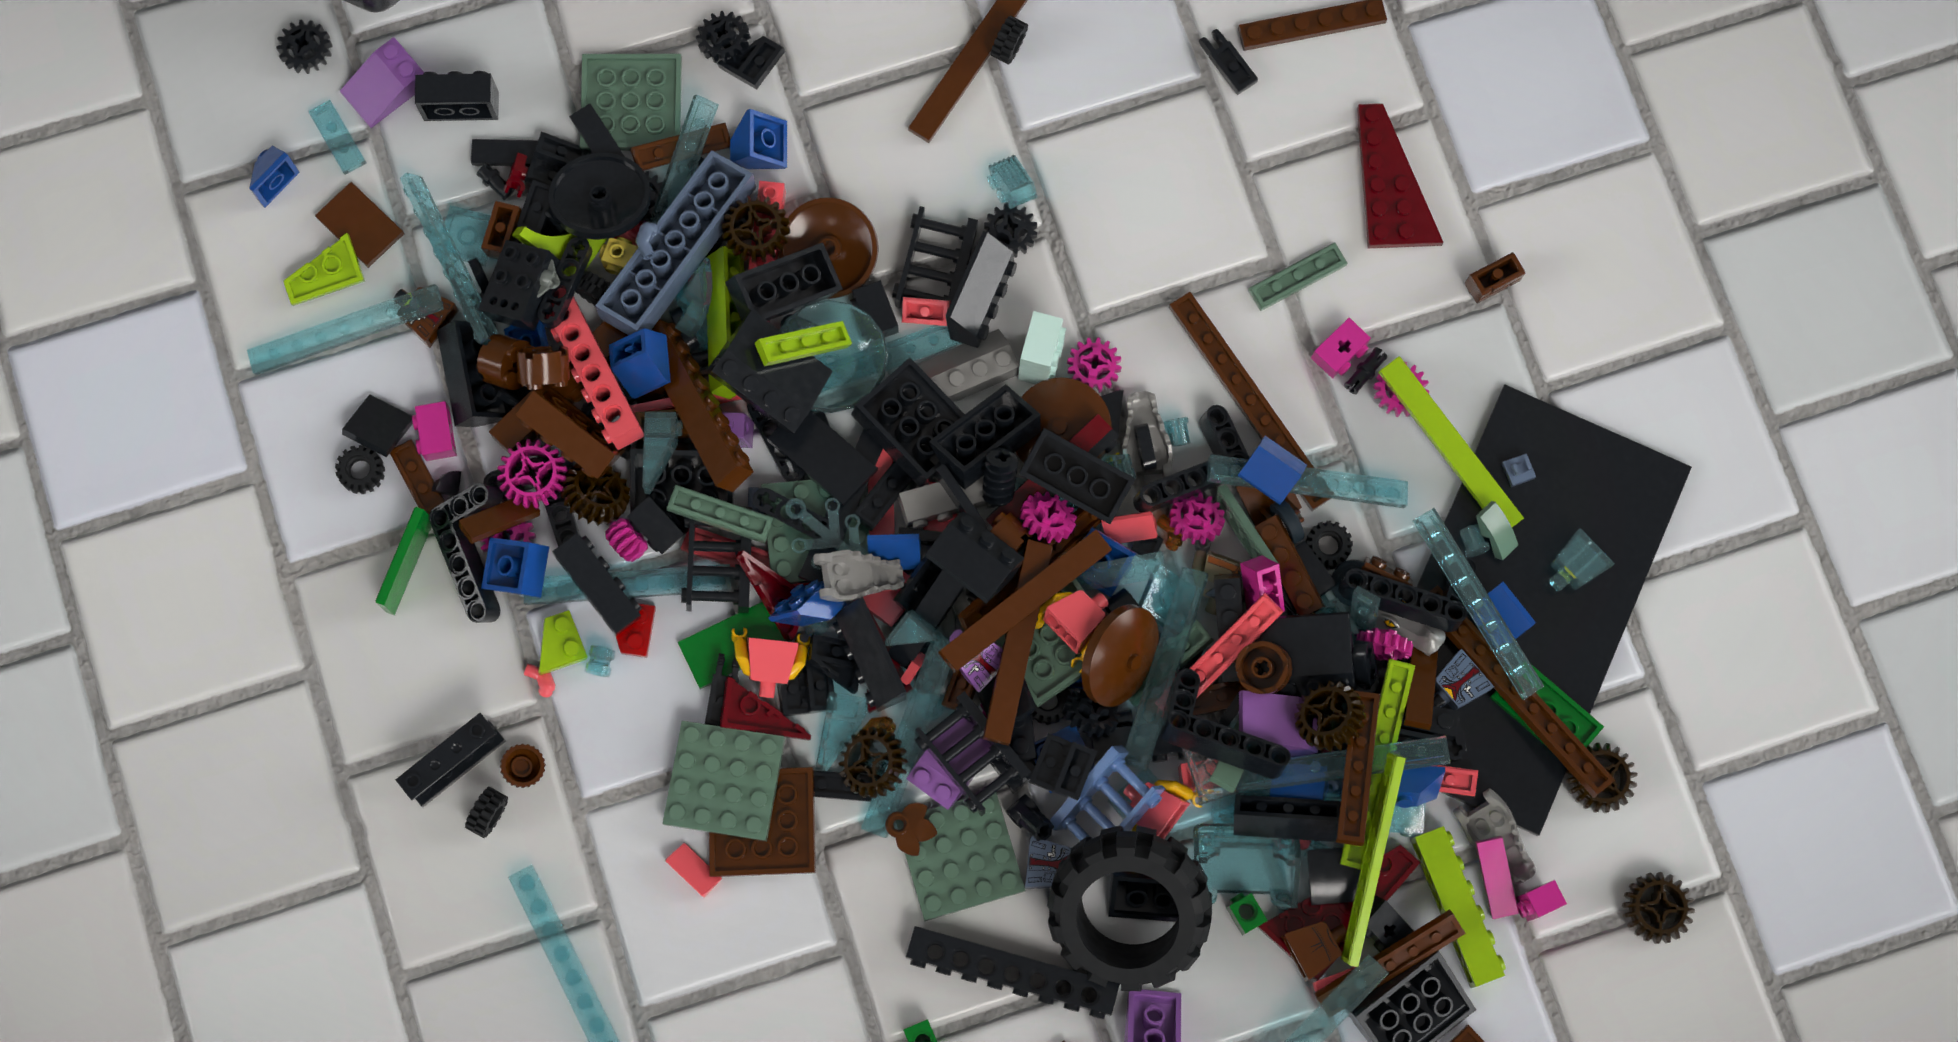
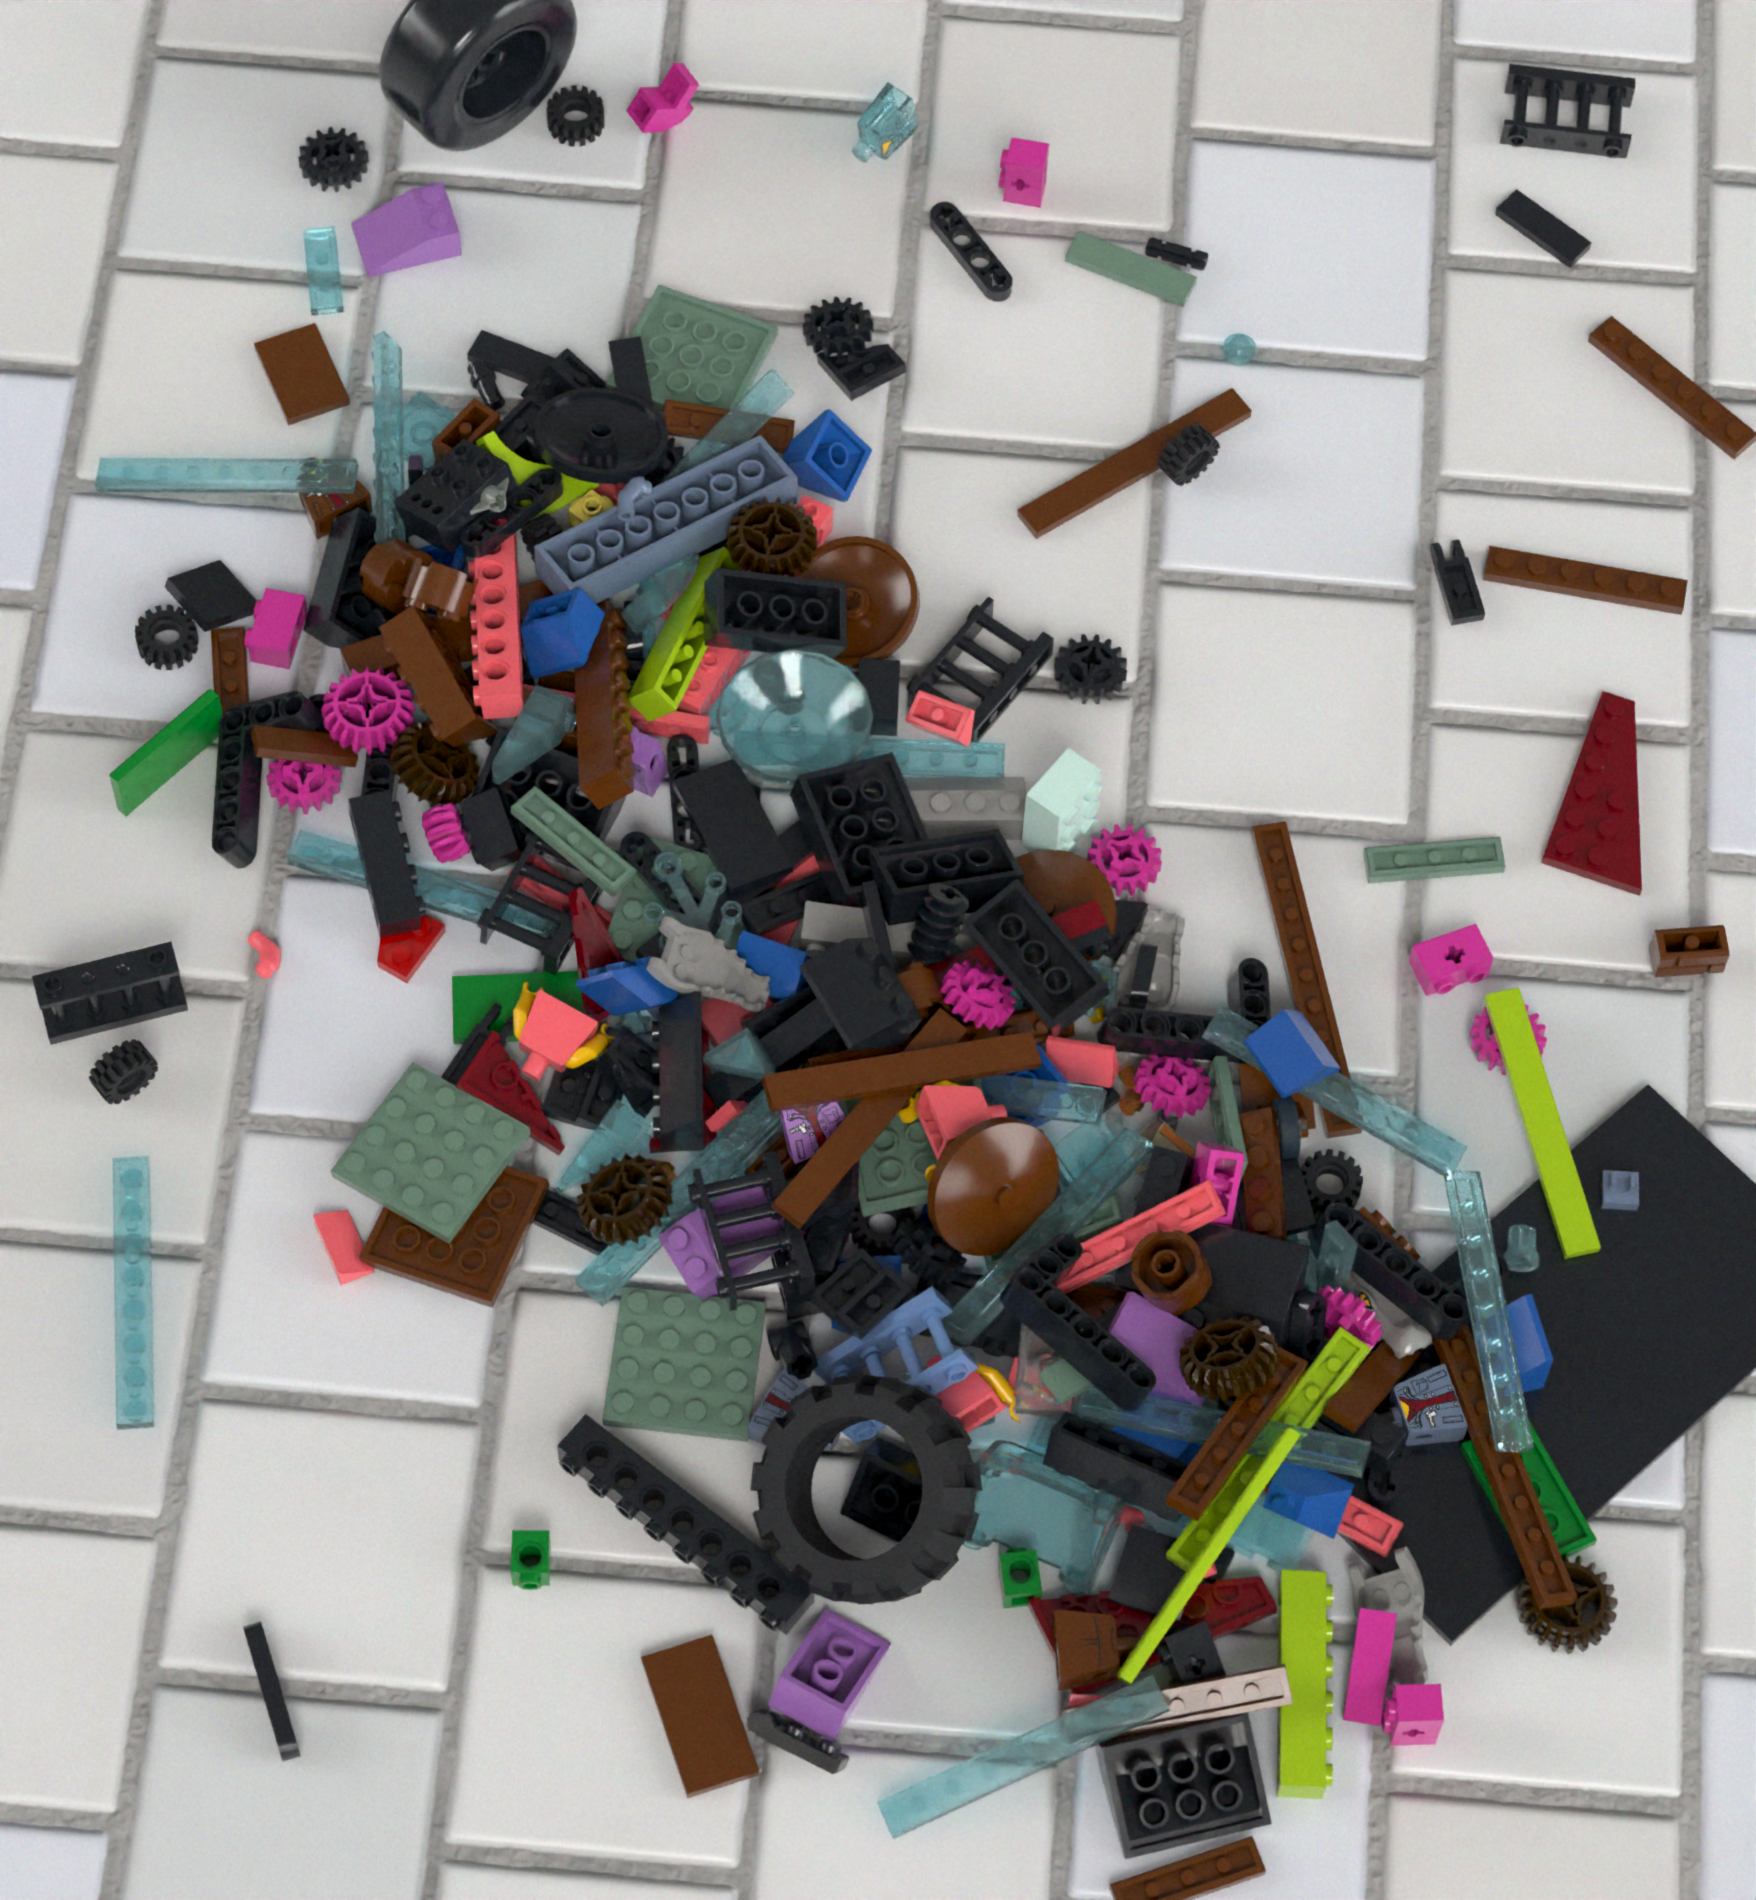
camera: 25 degrees right, 15 degrees down
(271, 174) = (225, 280): blue slope -> none
(327, 273) = (237, 410): lime wing -> none
(448, 483) = (262, 689): black tile -> none
(456, 96) = (485, 273): black brick -> none
(515, 567) = (296, 807): blue slope -> none
(517, 175) = (514, 384): dark red plate -> none
(522, 766) = (193, 1040): reddish brown hat -> none
(560, 643) = (308, 922): lime wing -> none
(602, 658) = (346, 960): clear light blue wheel -> none
(777, 391) = (709, 696): black slope -> none
(803, 343) = (765, 678): lime plate -> none
(915, 828) = (640, 1303): reddish brown plate -> none
(980, 291) = (1016, 715): slope -> none
(1011, 182) = (1115, 613): clear light blue brick -> none
(1178, 431) = (1195, 976): clear light blue bush -> none
(1365, 370) = (1469, 1000): black pin -> none
(1496, 526) = (1557, 1238): sand green slope -> none
(1578, 562) = (1650, 1328): clear light blue torso -> none
(1659, 896) = (1559, 1787): dark brown gear -> none

